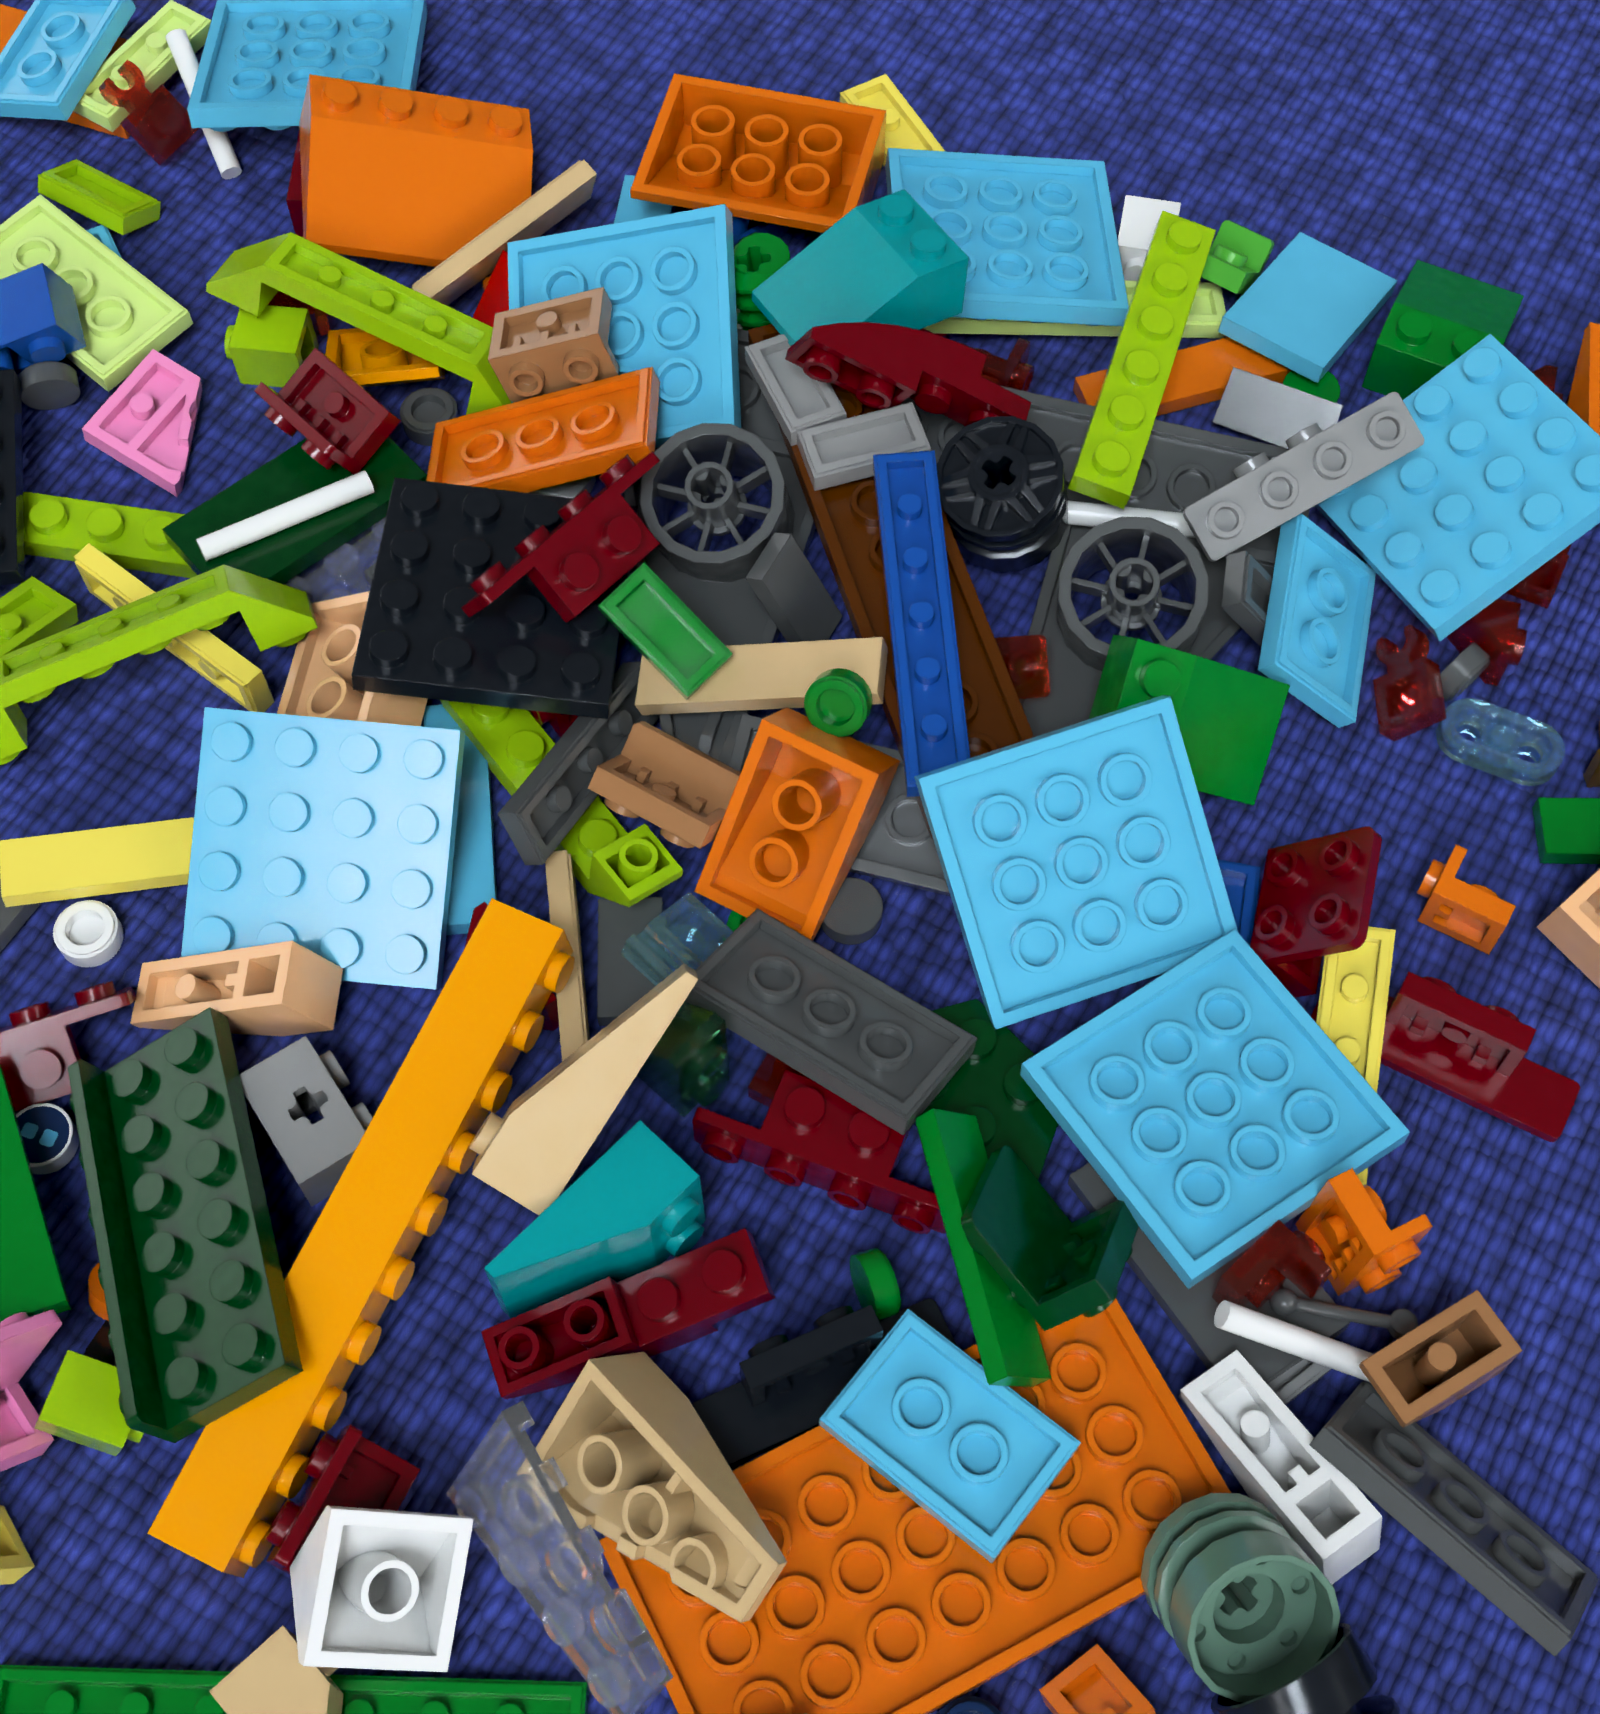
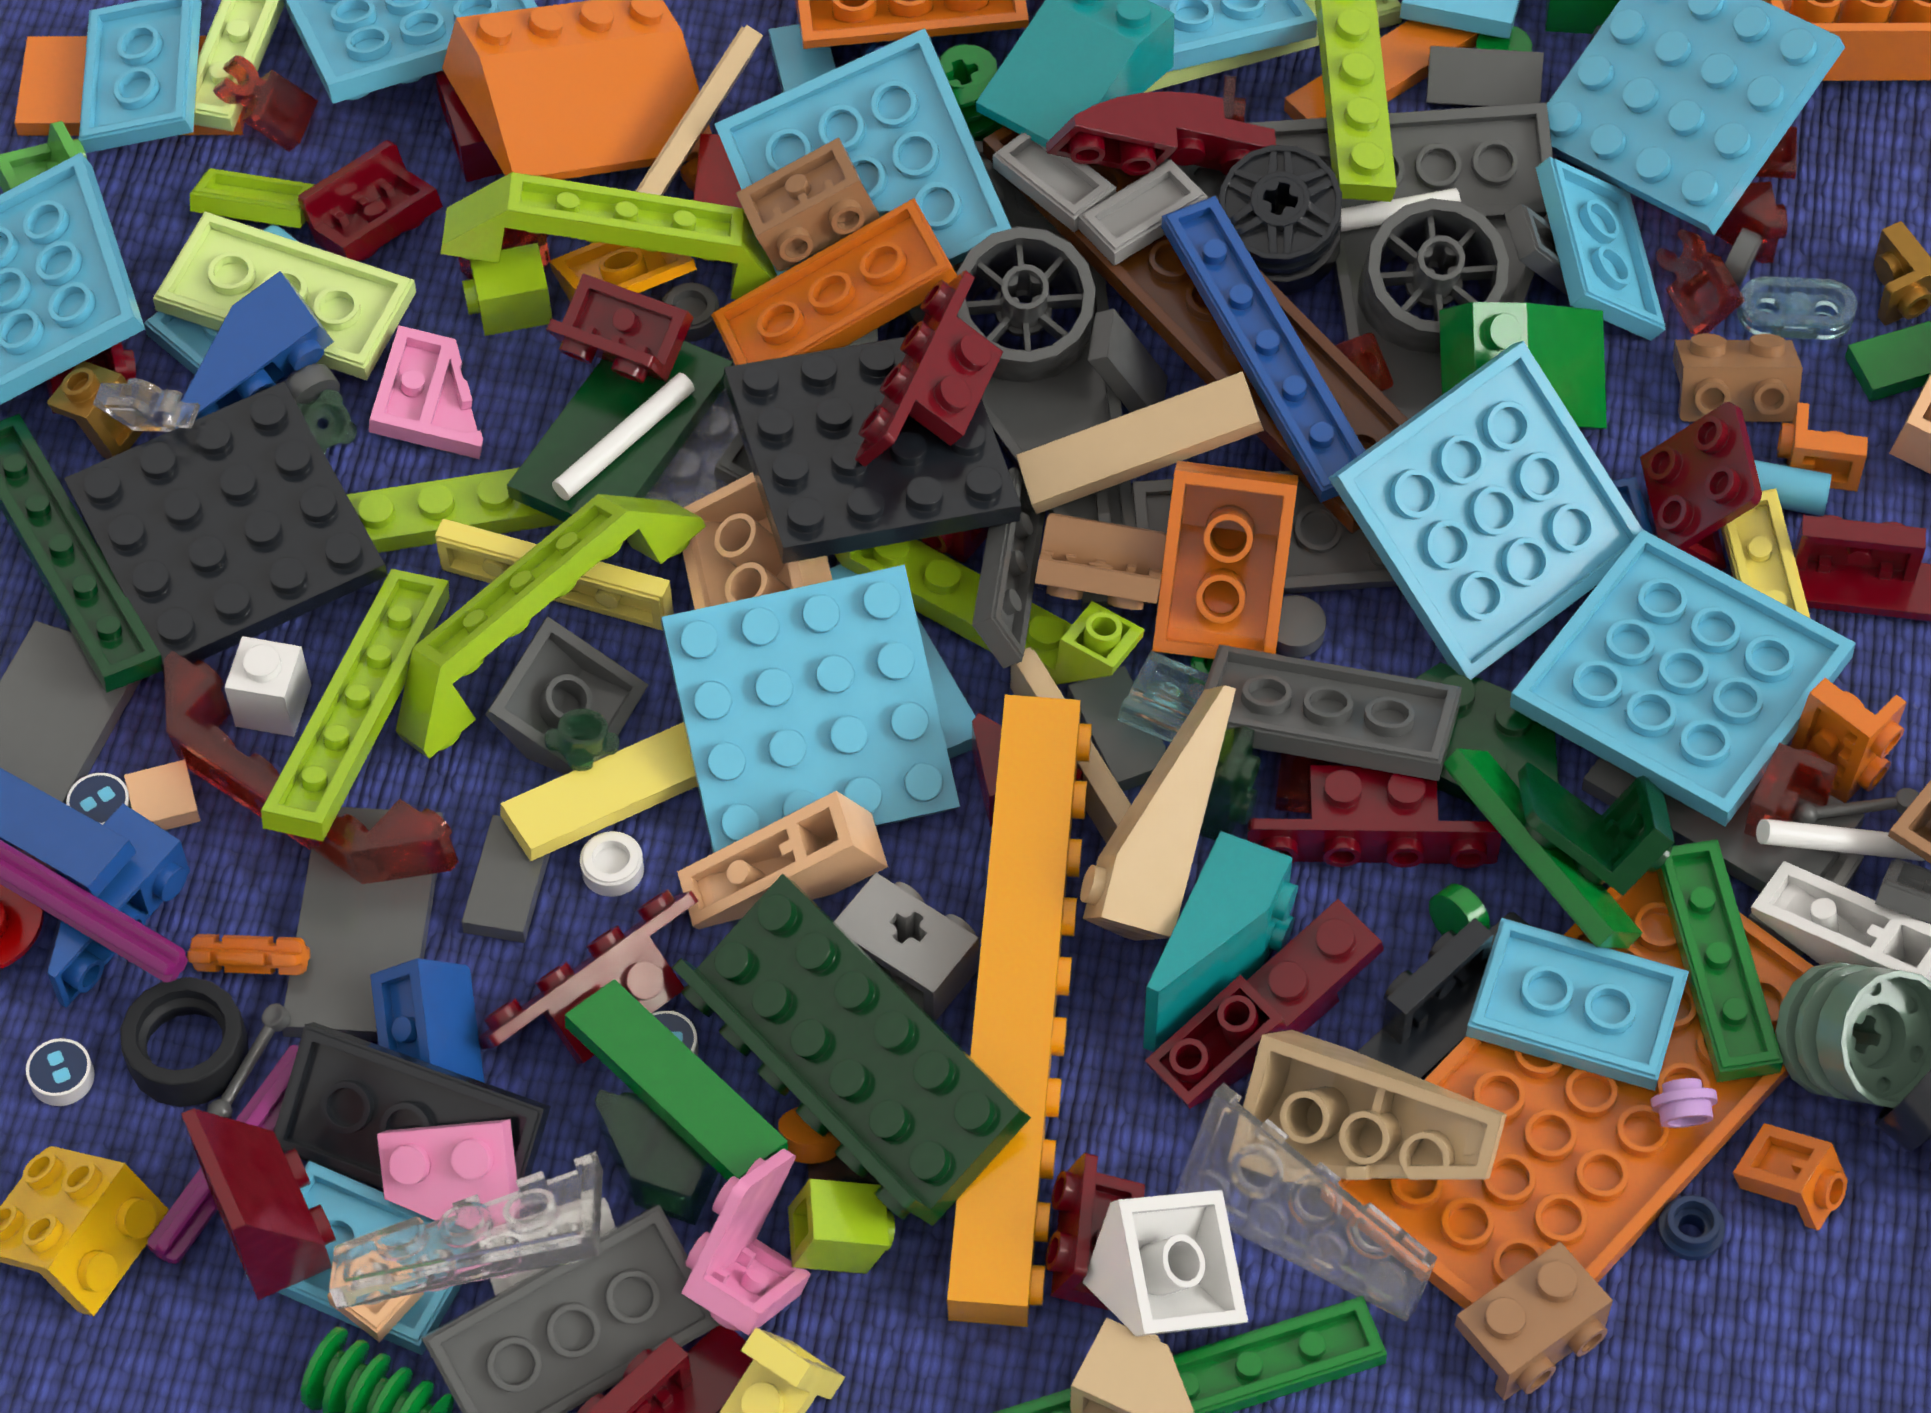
camera: 20 degrees left, 5 degrees down
(63, 429) = (339, 423): none -> clear green plate
(102, 788) = (582, 738): none -> clear green plate
(119, 754) = (555, 677): none -> dark grey slope
(186, 228) = (367, 203): none -> dark red bracket
(188, 66) = (302, 64): white bar -> none
(665, 631) = (1043, 426): green tile -> none
(838, 702) = (1228, 439): green tile -> none
(1009, 1599) = (1684, 1103): none -> lavender plate
(1119, 1443) = (1718, 963): none -> green tile
(1303, 476) = (1543, 124): light grey bracket -> none
(1408, 796) = (1753, 374): none -> medium nougat bracket
(1416, 928) = (1796, 487): none -> medium azure cylinder

